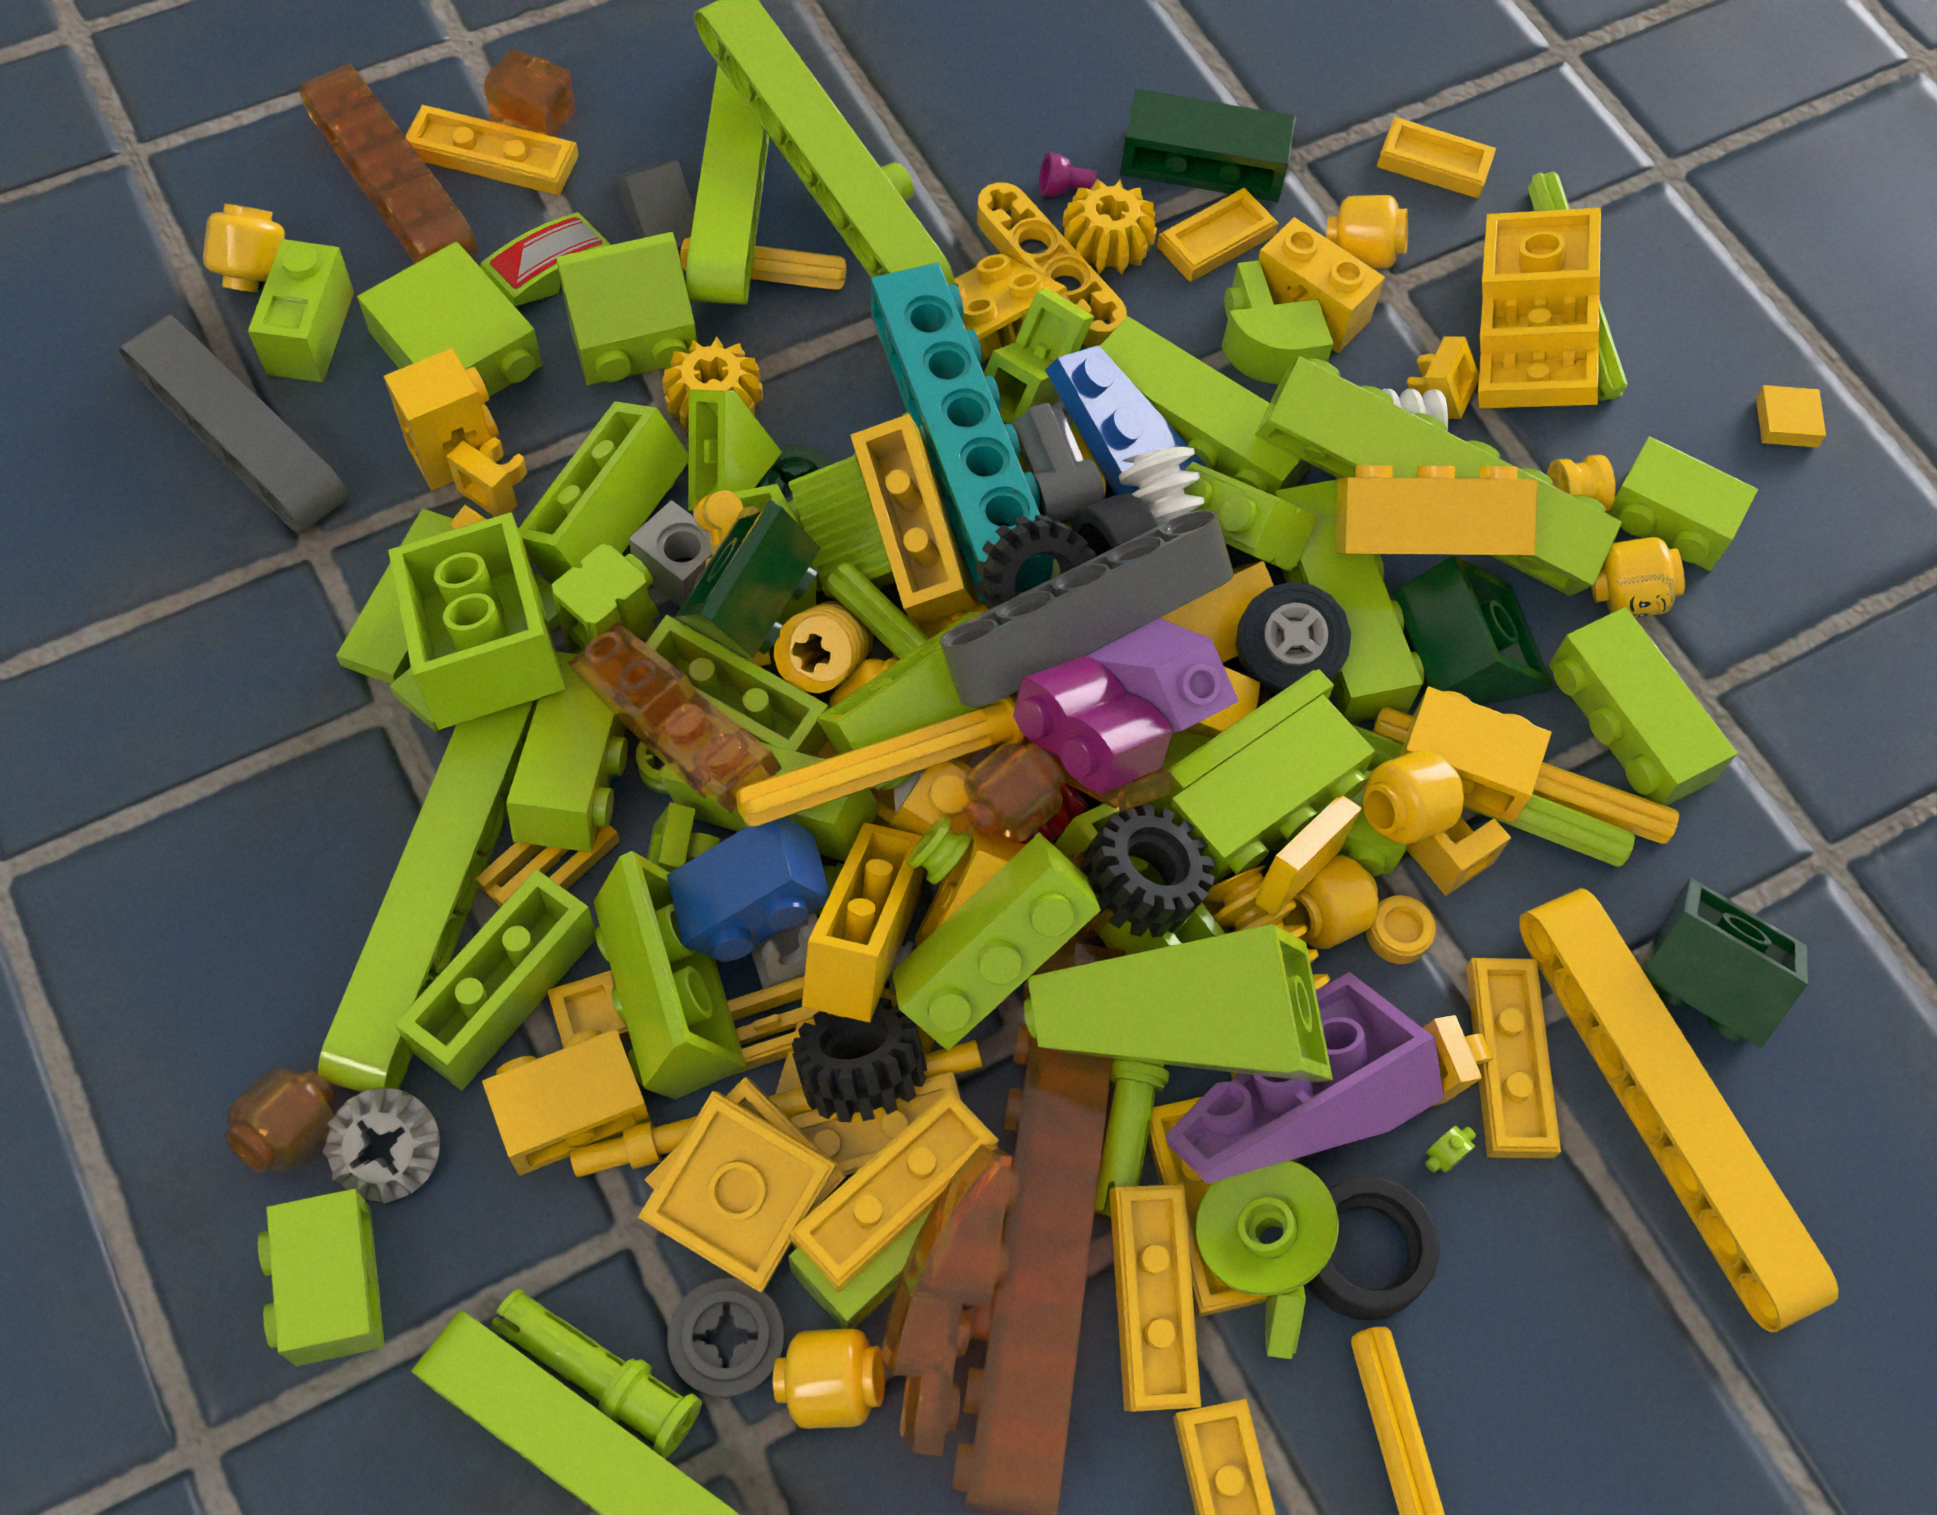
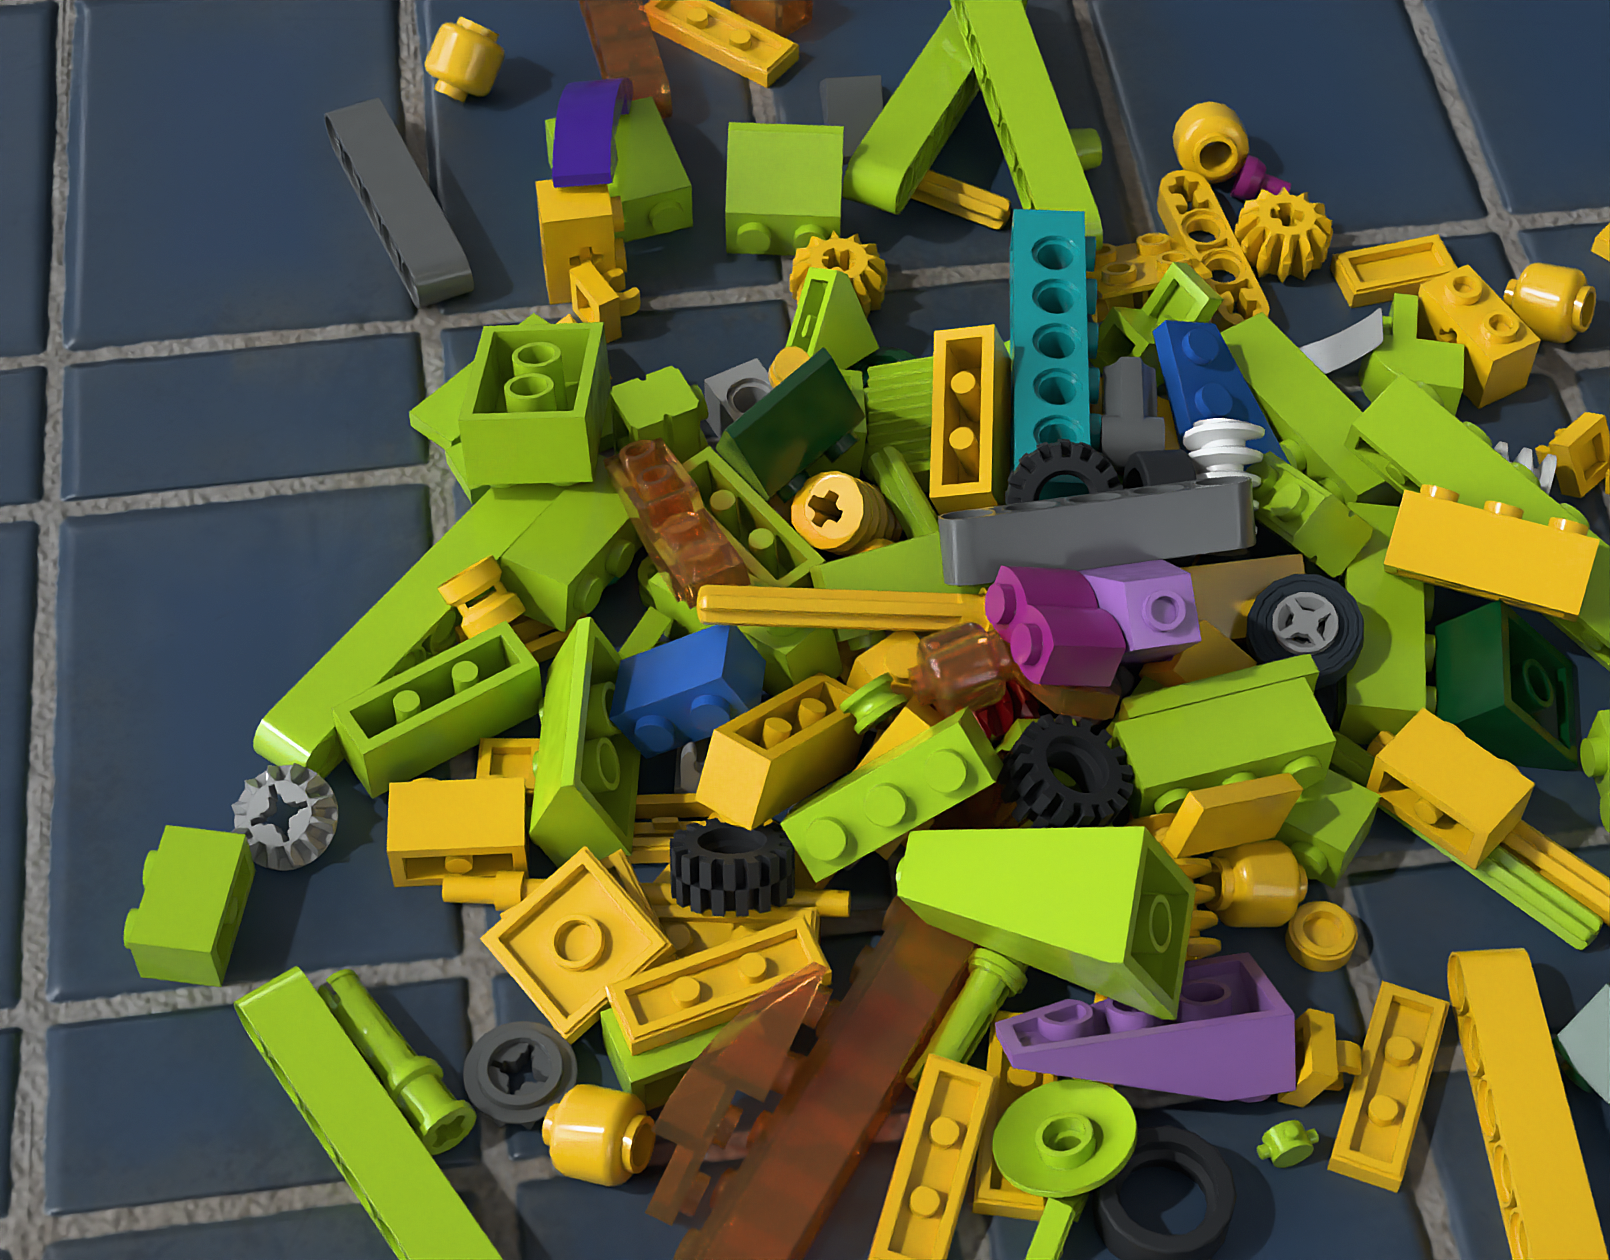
camera: 25 degrees right, 10 degrees down
(280, 1120) = (206, 767): clear orange head -> none
(301, 311) = (493, 124): lime brick -> none
(417, 304) = (587, 130): none -> dark purple slope
(499, 849) = (489, 609): none -> yellow wheel
(528, 264) = (703, 136): slope -> none
(604, 489) = (706, 330): lime brick -> none
(1009, 147) = (1211, 141): none -> yellow head
(1207, 145) = (1414, 186): dark green brick -> none
(1211, 325) = (1346, 345): none -> light grey sticker
(1413, 797) = (1364, 799): yellow head -> none
(1459, 853) = (1403, 876): yellow panel -> none

